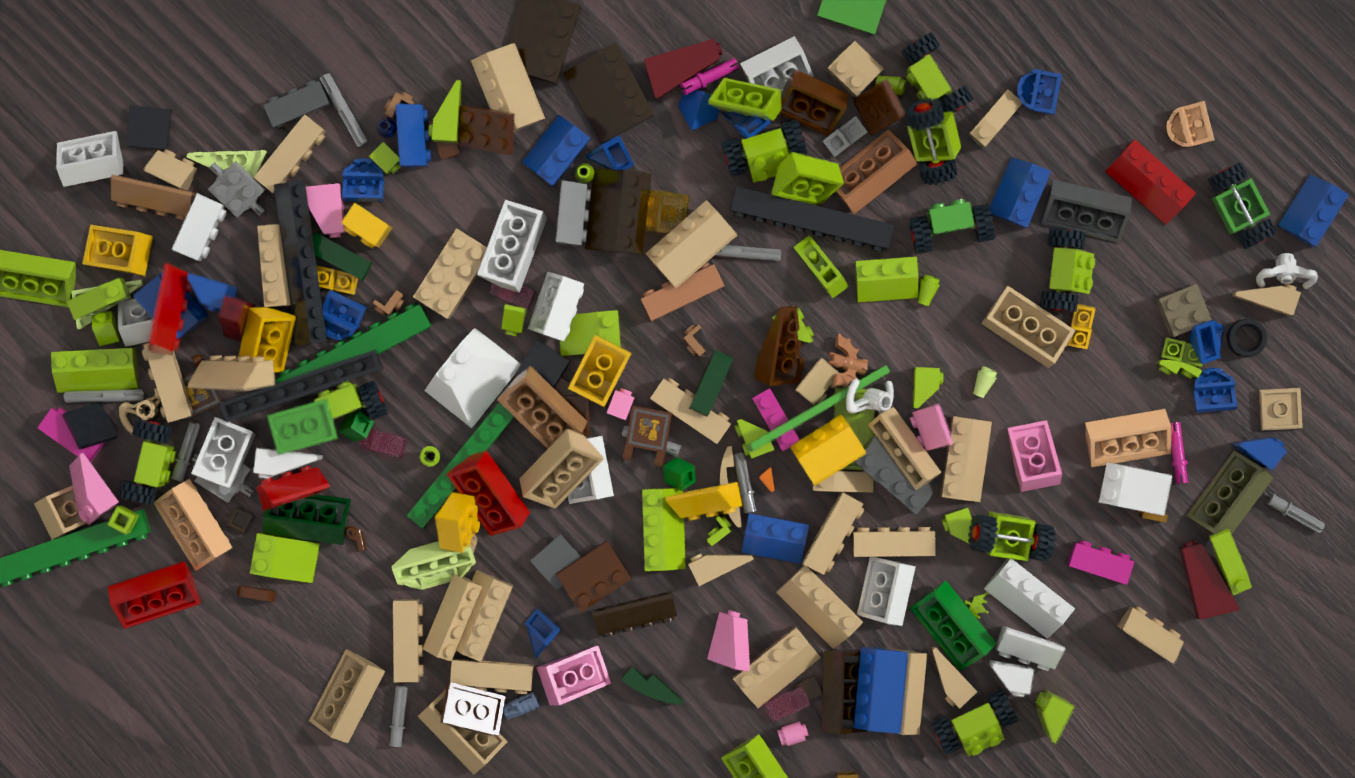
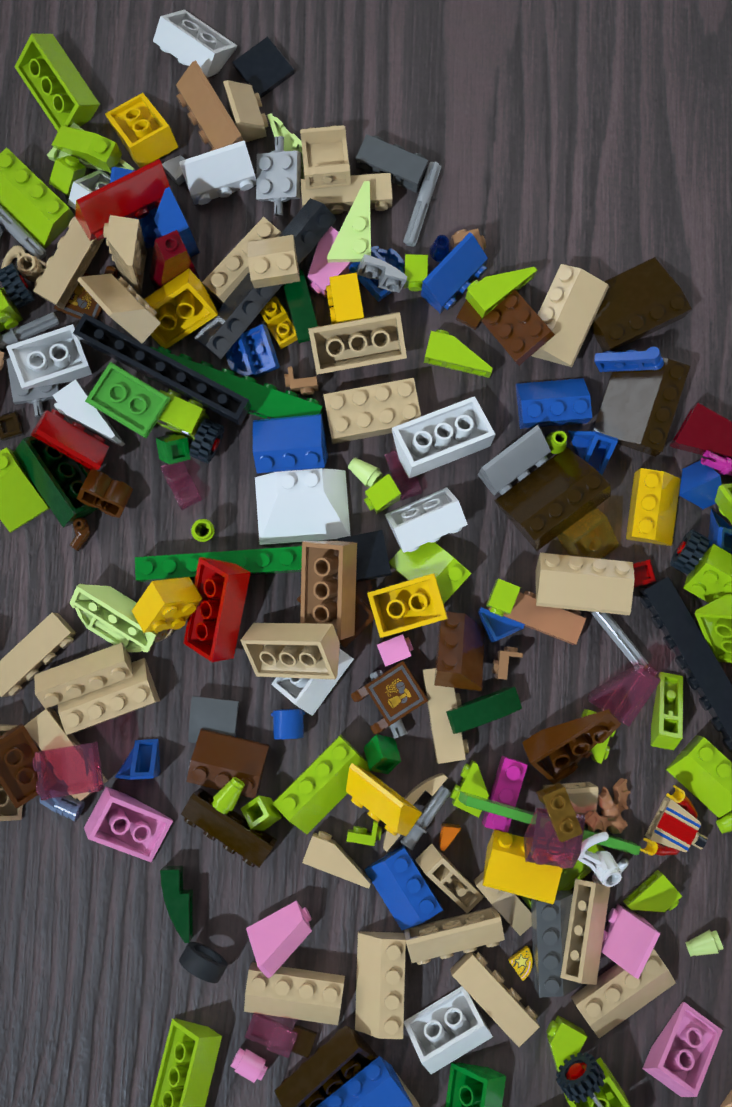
camera: 50 degrees right, 5 degrees down
(165, 251) = (174, 170): none -> light grey slope
(199, 337) = (127, 249): none -> tan slope
(255, 148) = (325, 157): none -> tan panel
(297, 250) = (273, 261): none -> tan slope
(327, 179) = (355, 233): none -> yellowish green wing
(346, 497) = (104, 493): none -> reddish brown brick
(374, 181) = (388, 275): none -> light grey slope
(400, 244) = (357, 343): none -> tan slope
(425, 349) = (289, 443): none -> blue slope
(462, 186) = (450, 353): none -> lime slope
(489, 315) = (365, 472): none -> yellowish green cone
(505, 679) = (68, 771): none -> clear pink panel
(576, 77) = (629, 360): none -> blue plate
(604, 515) = (288, 723): none -> blue piece
(614, 593) = (227, 797): none -> lime cone
(644, 584) = (260, 813): none -> lime brick
(651, 305) = (502, 597): none -> lime brick
(660, 364) = (459, 653): none -> reddish brown slope
(667, 323) = (497, 626): none -> blue slope
(685, 151) = (653, 507): none -> yellow slope
(702, 704) = (203, 962): none -> black tyre
(720, 199) = (643, 573): none -> red tile
(784, 282) = (626, 692): none -> clear pink slope
(796, 503) = (449, 878): none -> tan slope
(812, 396) = (560, 811): none -> pearl gold bracket
(825, 414) = (543, 845): none -> clear pink slope
(890, 506) = (522, 962): none -> yellow tile
(895, 331) = (674, 827): none -> torso

